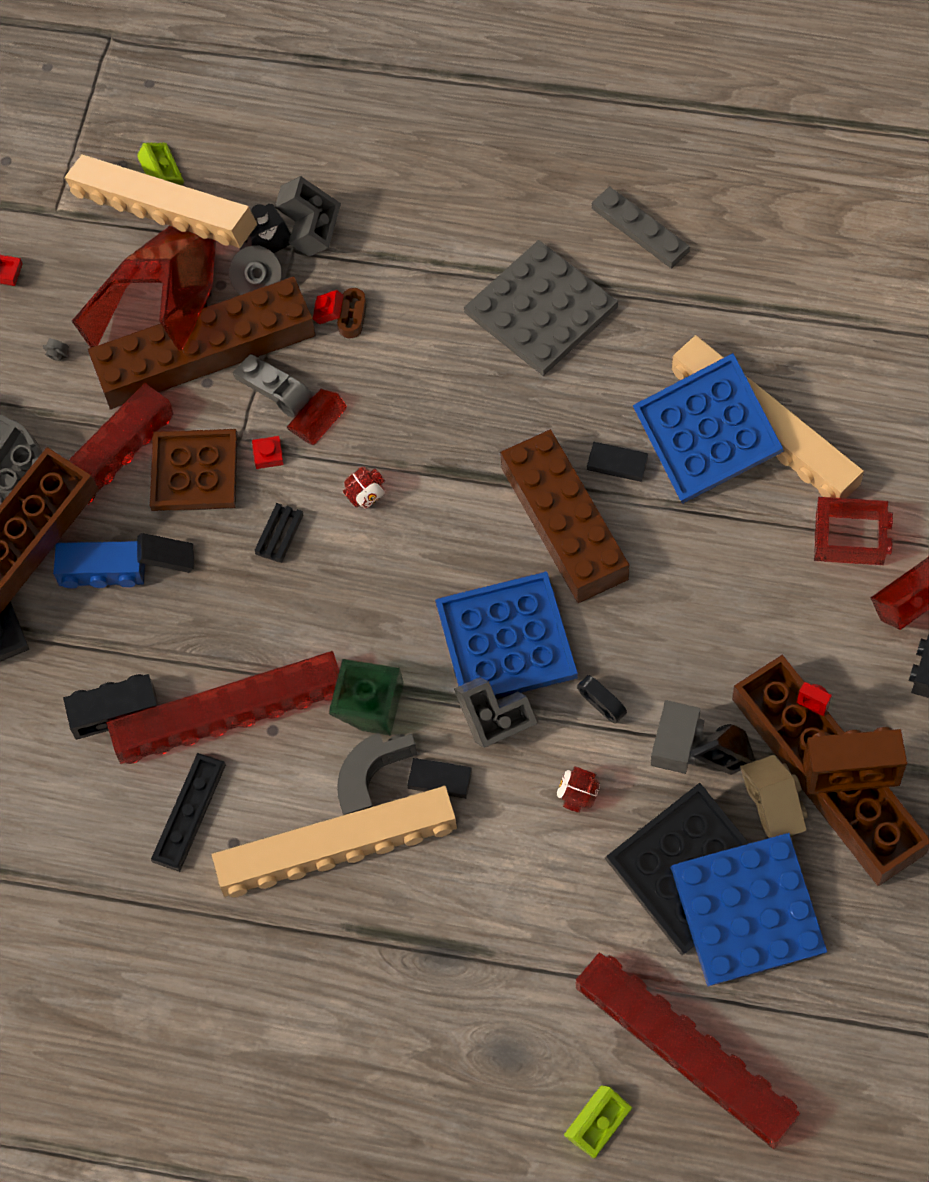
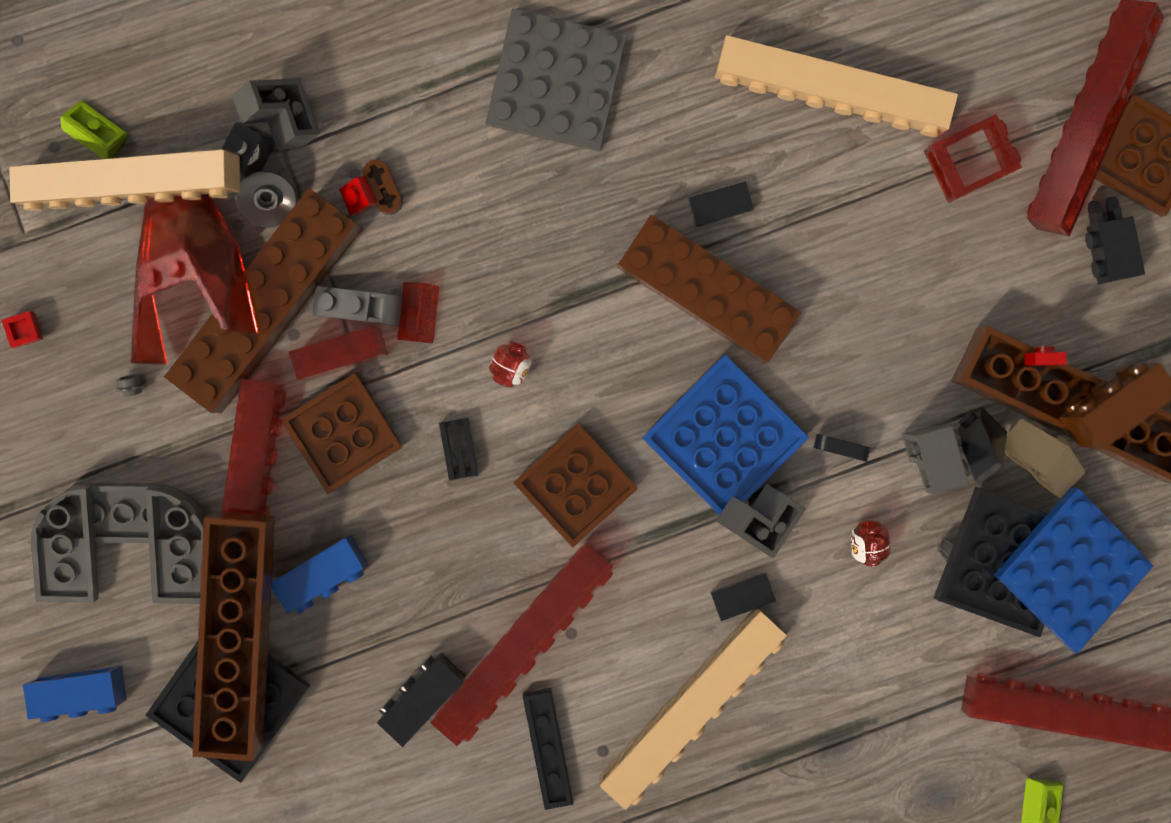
camera: 35 degrees left, 25 degrees up
(165, 552) = (372, 533): black tile -> none
(233, 408) = (338, 353): none -> clear red brick
(267, 452) = (396, 375): red plate -> none
(356, 608) = (575, 485): none -> reddish brown plate
(364, 763) = (678, 653): dark grey arch -> none
(367, 696) = (640, 568): clear green slope -> none
(708, 428) = (793, 128): blue plate -> none

